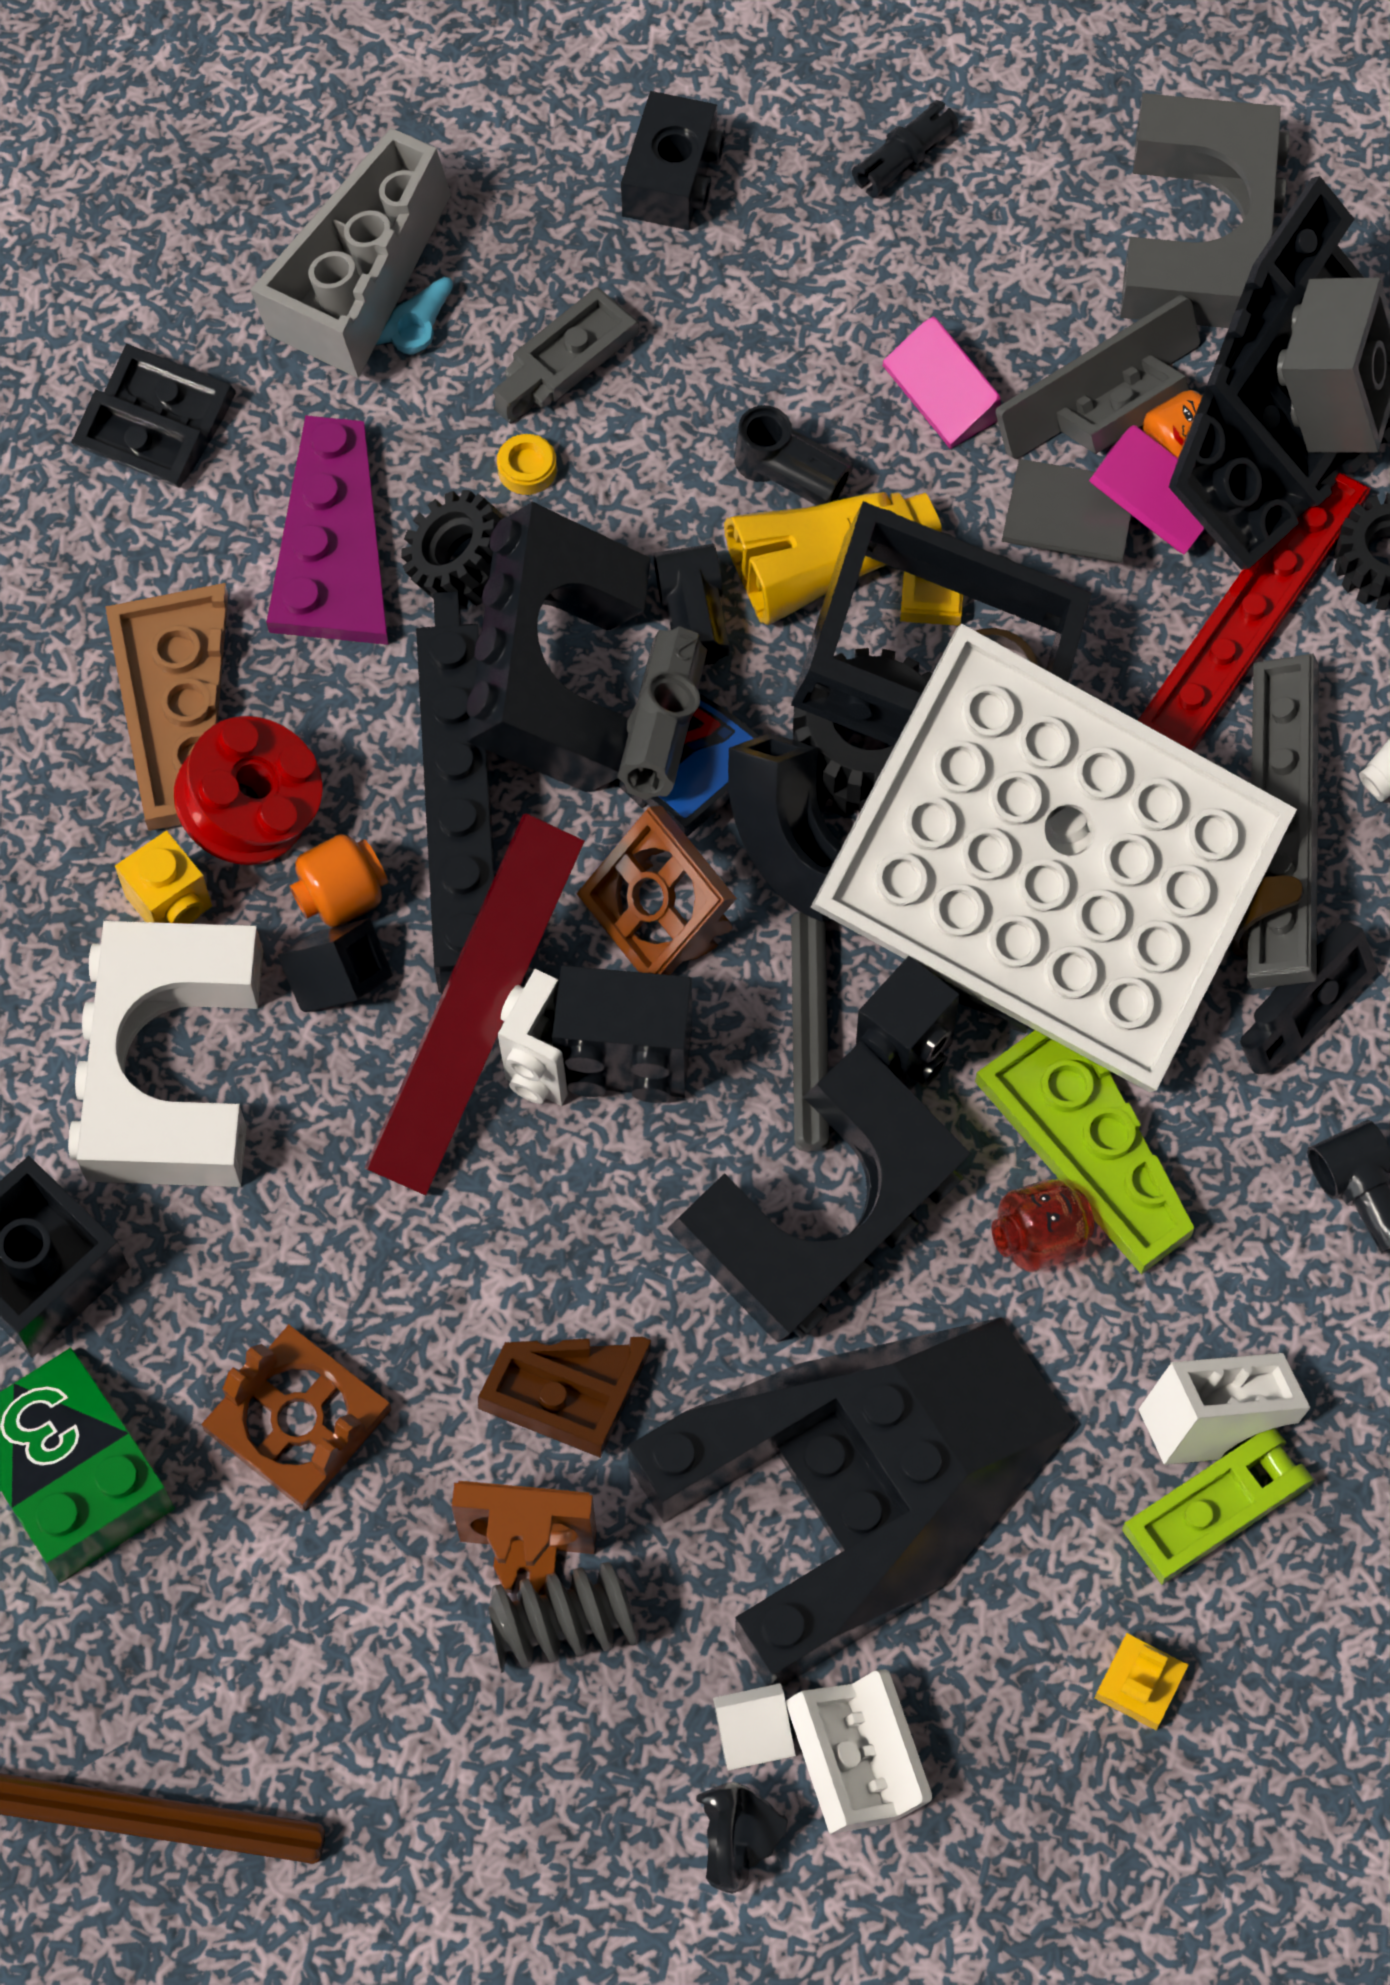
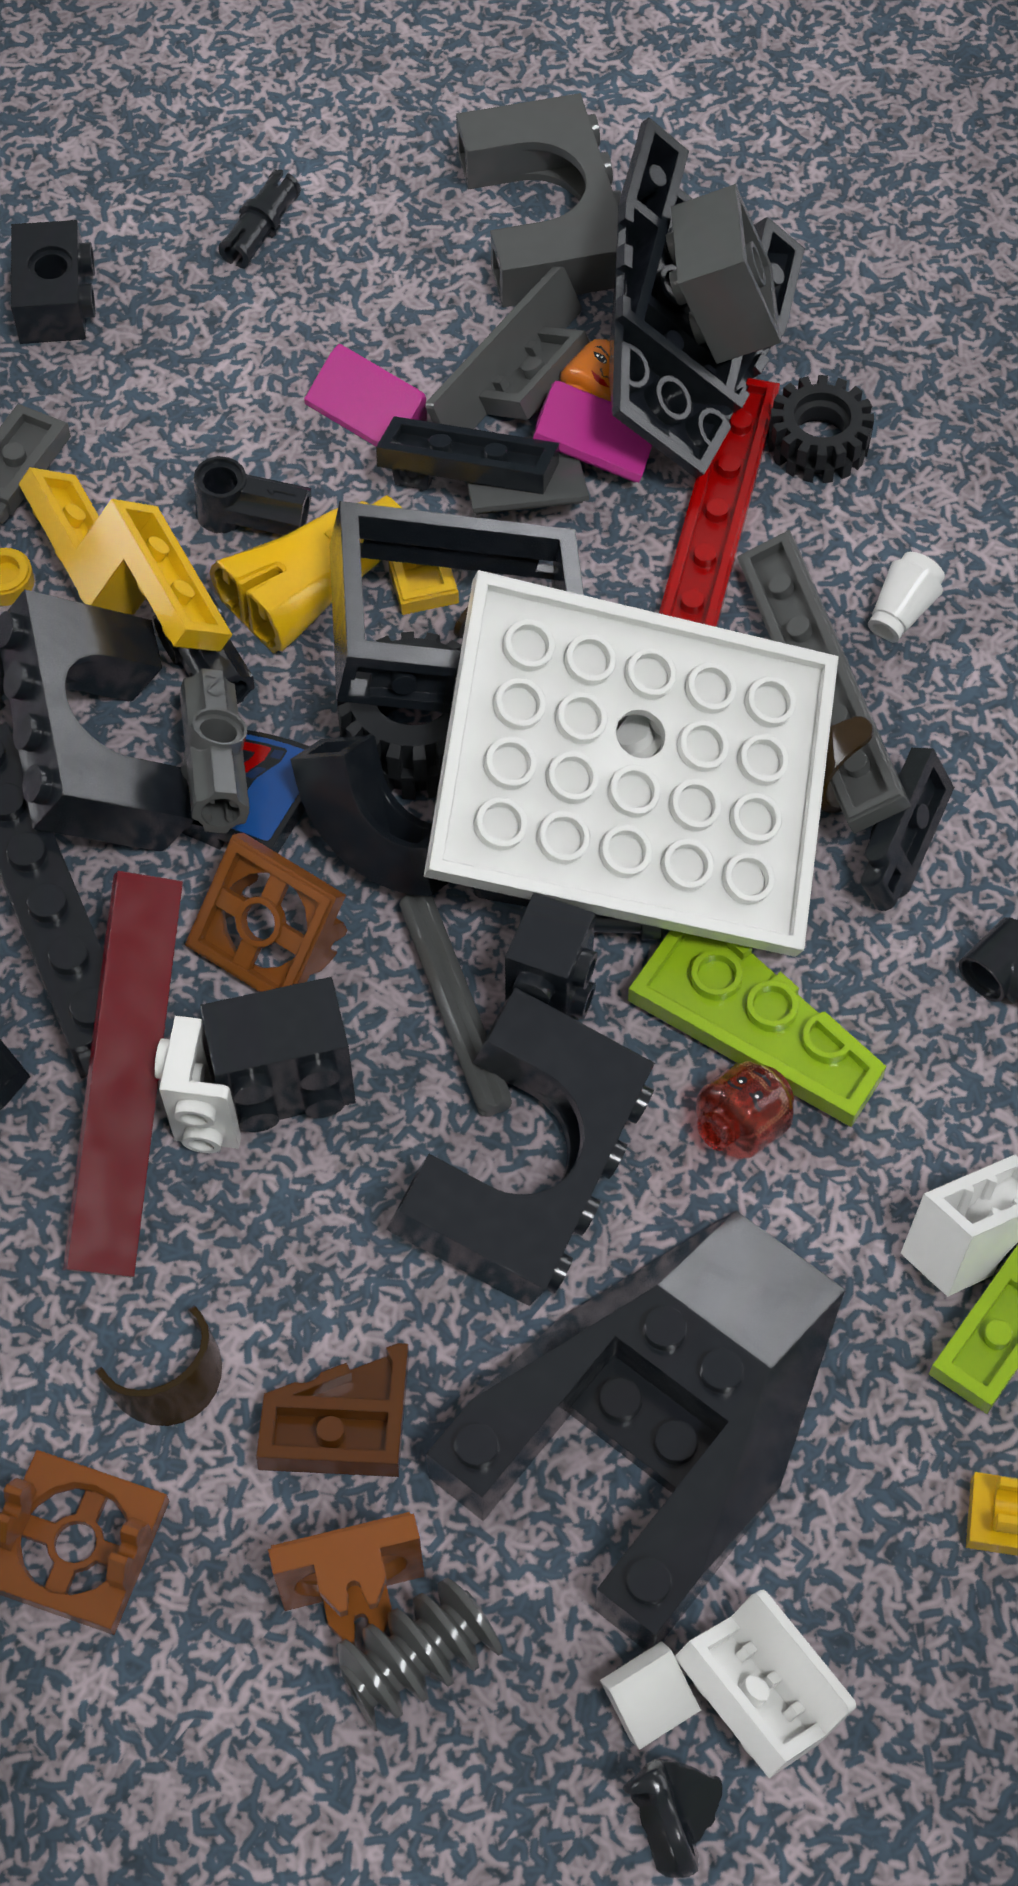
camera: 20 degrees left, 5 degrees down
(434, 1319) = (179, 1398): none -> dark brown helmet
(644, 487) = (125, 559): none -> yellow bracket
(986, 460) = (428, 449): none -> black hinge

